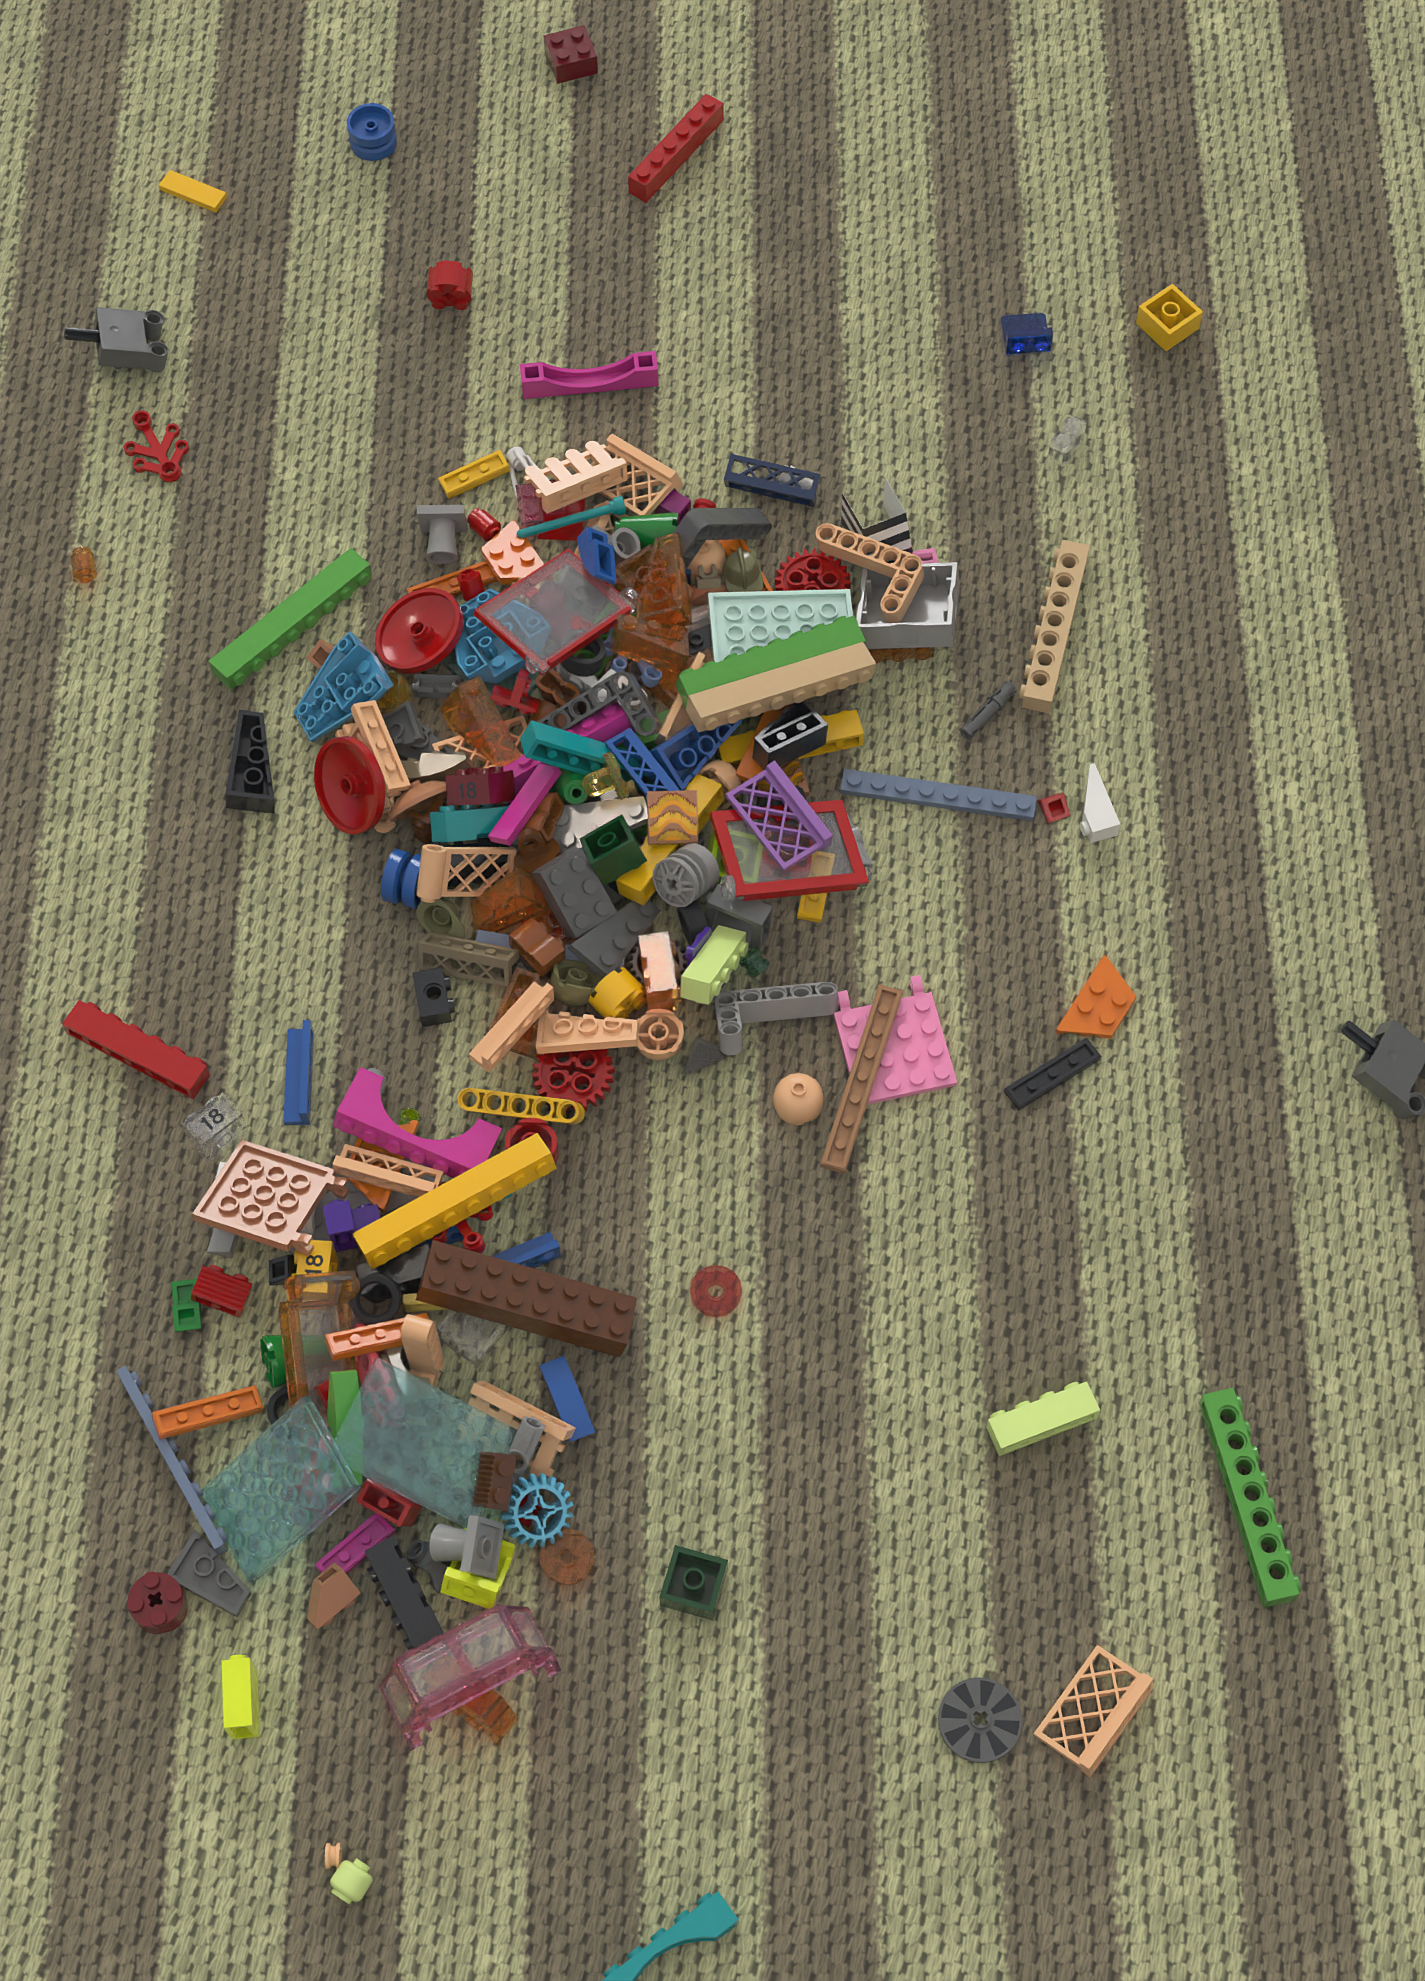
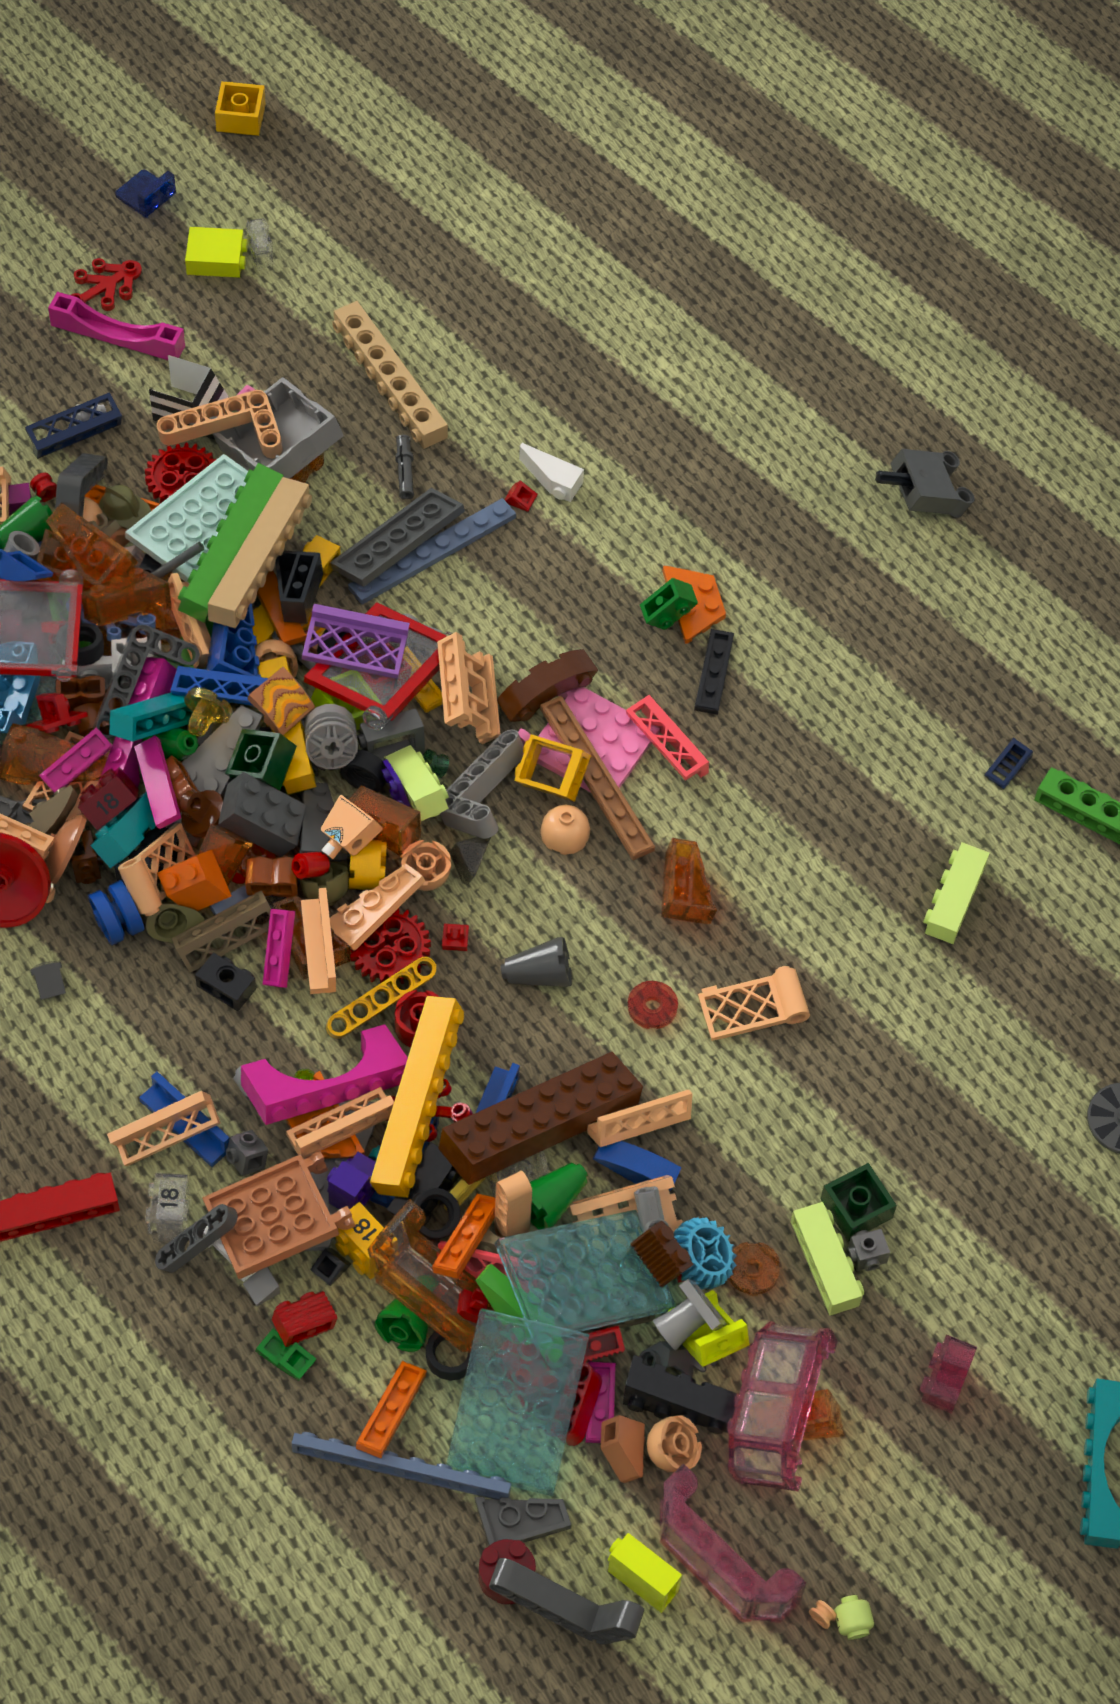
camera: 50 degrees left, 5 degrees down
(157, 1660) = (564, 1607): none -> dark grey beam
(205, 1165) = (219, 1222): none -> dark grey beam
(273, 1057) = (164, 1117): none -> light nougat fence
(292, 1735) = (717, 1563): none -> clear pink windscreen
(310, 1135) = (247, 1152): none -> dark grey brick
(318, 888) = (48, 979): none -> dark grey tile
(335, 1532) = (587, 1394): none -> red beam
(362, 1629) = (674, 1443): none -> light nougat cylinder
(467, 1362) = (555, 1193): none -> green cone
(475, 902) = (195, 882): none -> orange slope
(488, 1004) = (278, 948): none -> dark pink tile
(489, 740) = (76, 760): none -> dark pink tile
(566, 960) = (310, 865): none -> red brick
(602, 1369) = (641, 1118): none -> light nougat fence
(614, 1776) = (950, 1368): none -> clear pink brick
(617, 955) = (348, 828): none -> light nougat torso
(624, 1601) = (826, 1258): none -> yellowish green brick
(629, 1109) = (455, 937): none -> red tile
(663, 1187) = (540, 965): none -> dark grey cone
(664, 1634) = (868, 1250): none -> flat silver brick
(715, 646) = (179, 560): none -> dark grey piece
(821, 1373) = (784, 990): none -> light nougat piece
(824, 913) = (459, 672): none -> light nougat fence
(835, 1220) = (684, 884): none -> clear orange wedge
(842, 1058) = (573, 775): none -> yellow window
(901, 455) = (77, 317): none -> dark pink arch
(902, 970) = (546, 682): none -> reddish brown brick
(917, 386) = (127, 271): none -> red plant
(918, 761) = (397, 537): none -> dark grey plate
(959, 1101) = (670, 733): none -> coral fence
(1025, 422) = (215, 252): none -> neon yellow brick
(1066, 988) = (668, 604): none -> green brick
(1221, 1362) = (1019, 749): none -> dark blue slope

